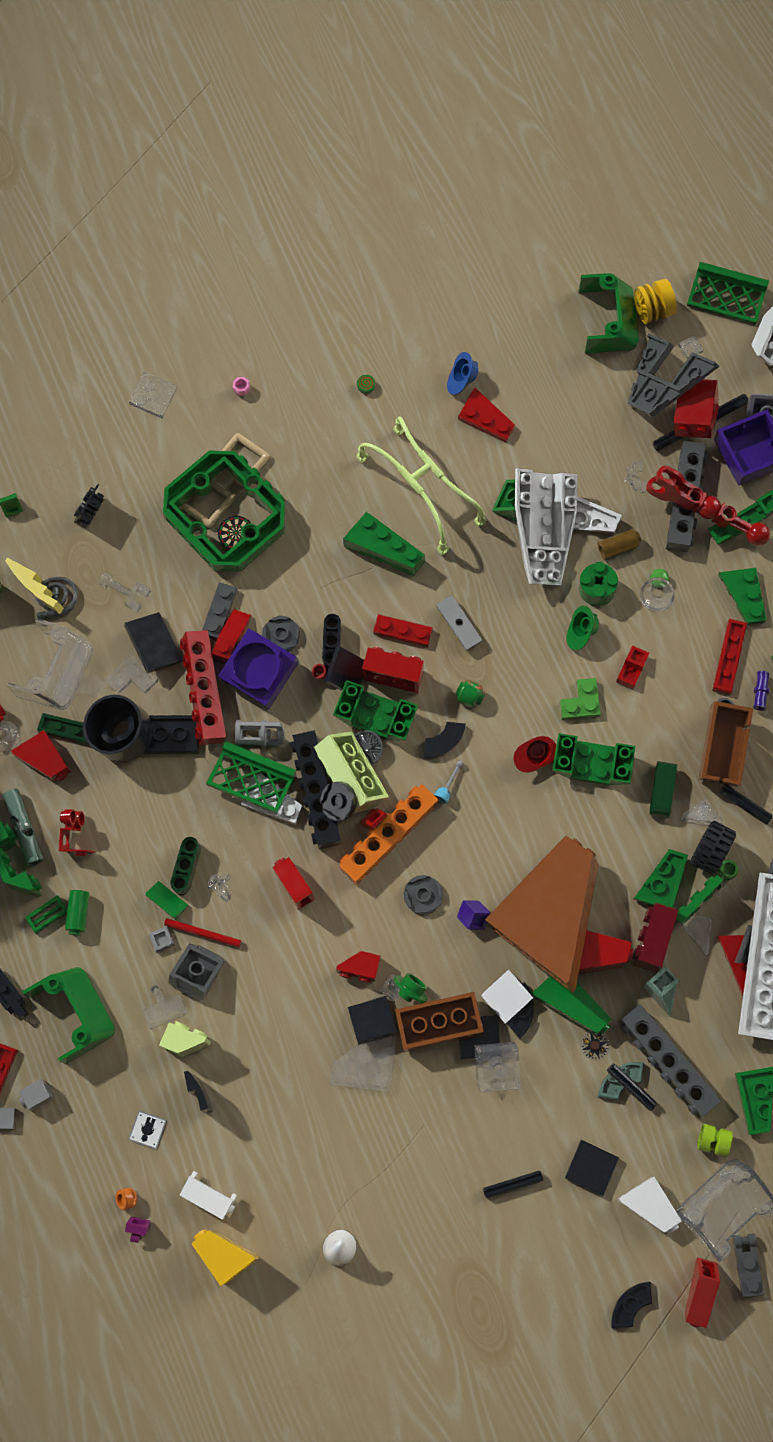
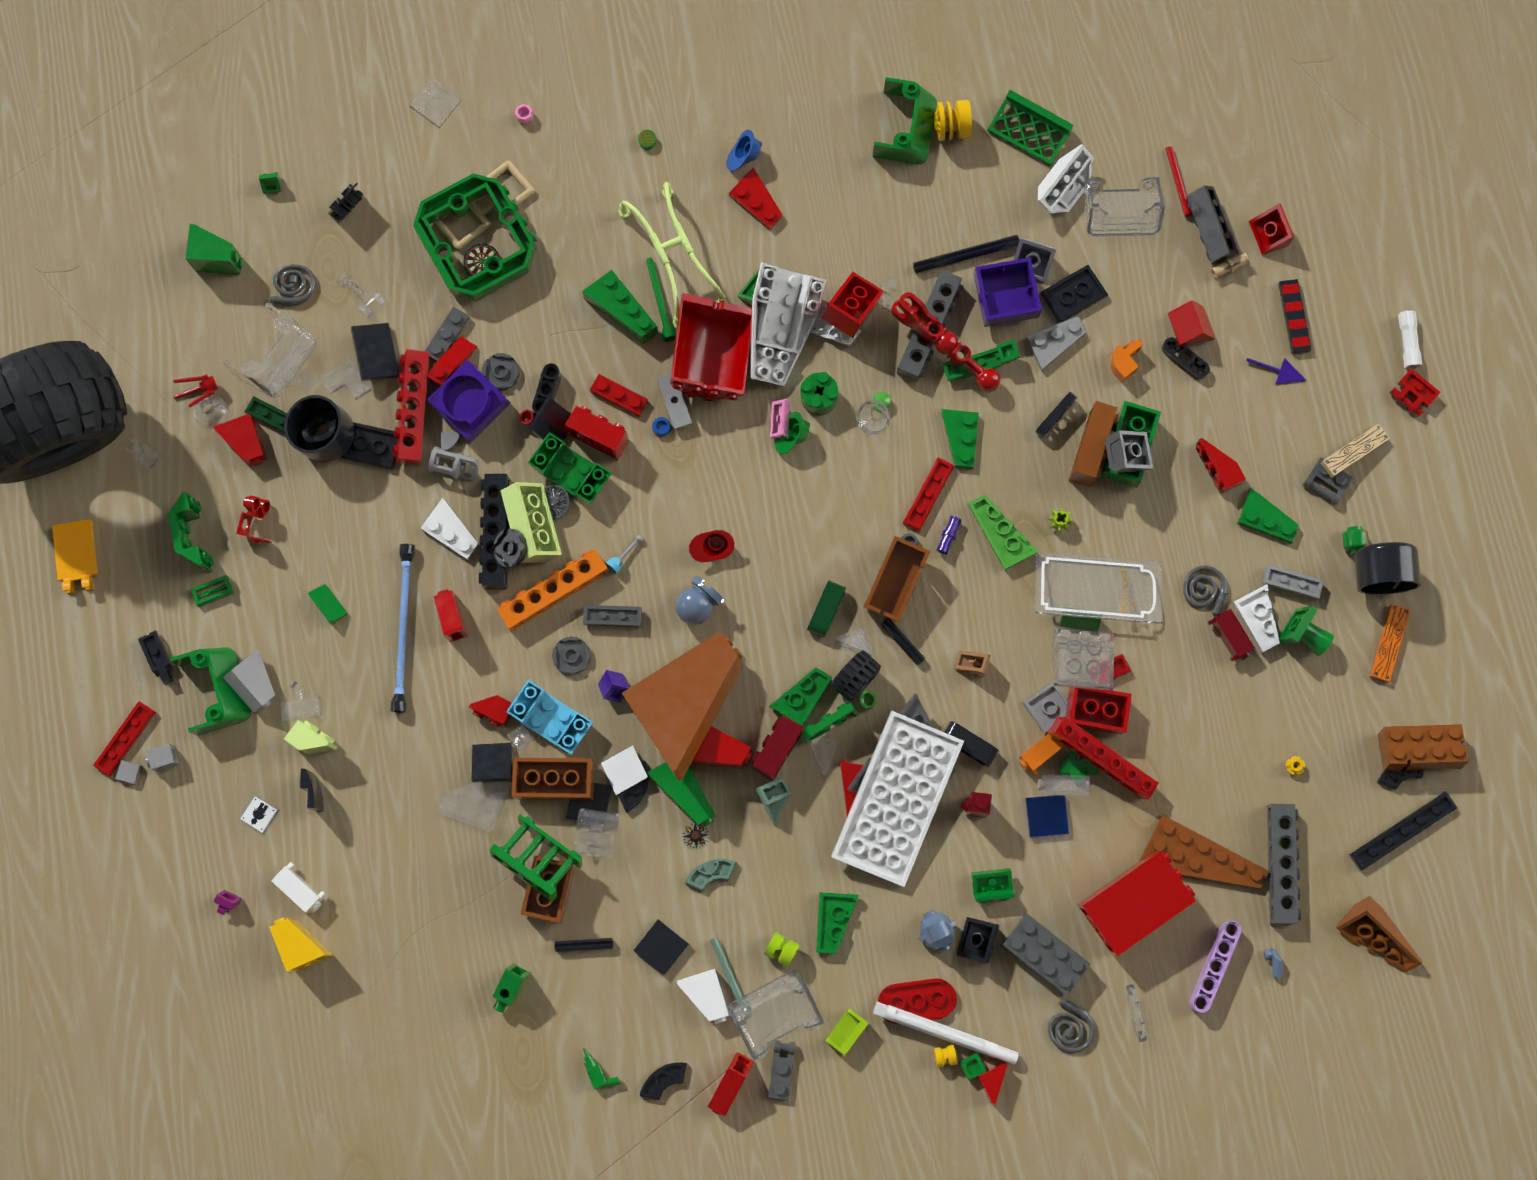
camera: 10 degrees right, 5 degrees up
(21, 825) = (207, 494): sand green piece -> none
(33, 583) = (272, 267): light yellow slope -> none
(77, 912) = (240, 595): green brick -> none
(110, 996) = (251, 682): none -> light grey slope
(126, 1198) = (223, 872): orange tile -> none
(161, 939) = (314, 639): light grey tile -> none
(185, 856) = (353, 566): dark green beam -> none
(196, 971) = (338, 677): dark grey slope -> none
(202, 932) = (353, 642): red bar -> none
(216, 882) = (379, 600): clear piece -> none
(247, 711) = (449, 440): none -> light grey tile
(259, 763) = (445, 492): green fence -> none
(262, 981) = (398, 702): none -> light blue hose
(339, 1248) = (408, 964): white hat -> none
(373, 819) = (540, 572): red slope -> none
(411, 988) = (534, 741): green piece -> none
(430, 964) = (549, 717): none -> medium azure slope
(435, 559) = (668, 333): none -> green piece
(445, 740) = (630, 513): black tile -> none
(447, 1125) = (533, 876): none -> green fence
(452, 651) = (661, 427): none -> blue tile
(452, 1239) = (512, 980): none -> green torso
(454, 845) = (612, 615): none -> dark grey plate
(463, 1136) = (540, 907): none -> dark orange brick
(470, 693) = (666, 472): green head -> none
(485, 564) = (711, 348): none -> red cylinder
(535, 813) = (696, 603): none -> sand blue tile
(561, 1315) = (596, 1073): none -> green piece
(569, 616) = (779, 419): none -> bright pink tile
(585, 705) = (773, 510): bright green plate -> none
(593, 761) = (765, 565): green slope -> none
(608, 492) = (852, 304): none -> red brick
(619, 543) = (851, 358): pearl gold brick -> none
(631, 1087) = (717, 882): black axle -> none
(632, 667) = (831, 483): red slope -> none
(654, 394) = (925, 215): dark grey wing -> none
(663, 1173) = (726, 968): none -> sand green bar
(690, 345) = (978, 175): clear tile -> none
(697, 410) = (962, 240): red slope -> none
(707, 1099) = (743, 818): dark grey brick -> none

